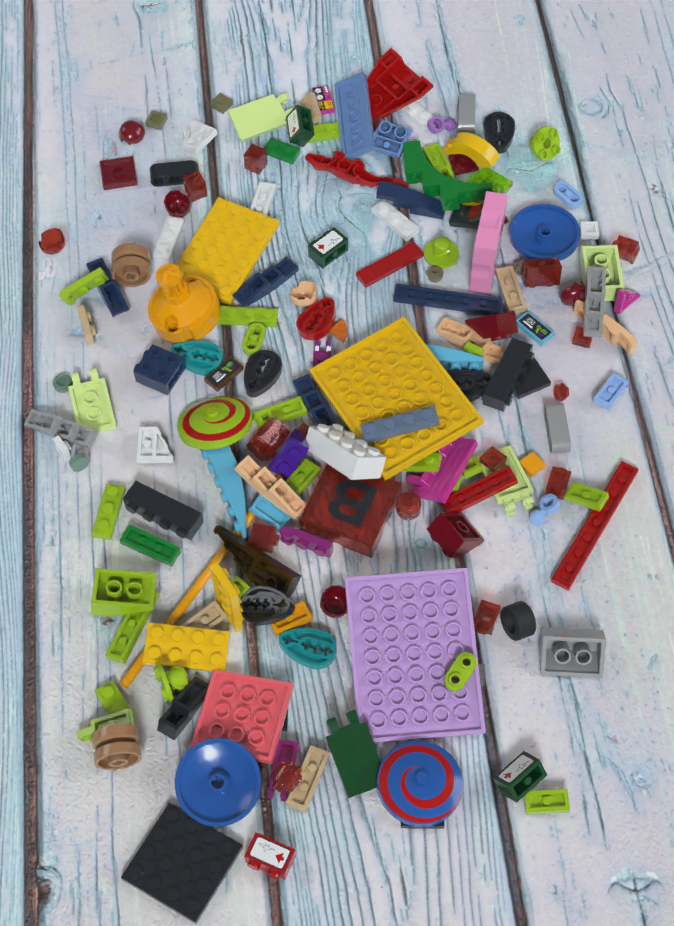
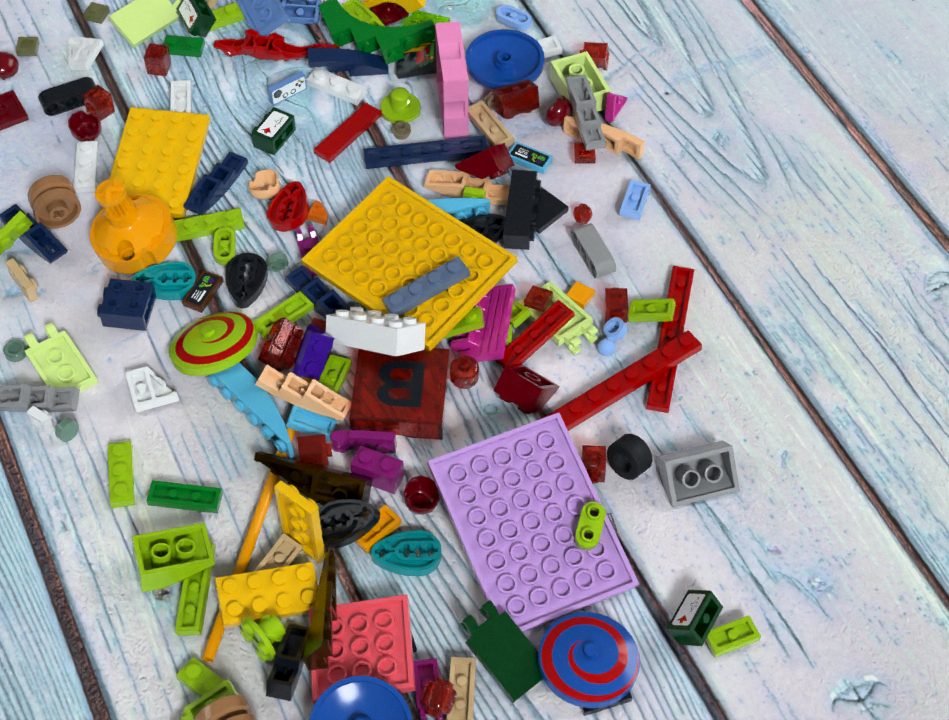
camera: 20 degrees left, 5 degrees down
(163, 510) = (186, 454): black brick -> none
(224, 675) = (319, 639): none -> dark brown wedge
(291, 365) = (277, 262): none -> sand green tile
(313, 572) = (384, 469): none -> magenta brick
(352, 211) = (287, 88): none -> tile
(540, 553) = (628, 380): none -> red plate

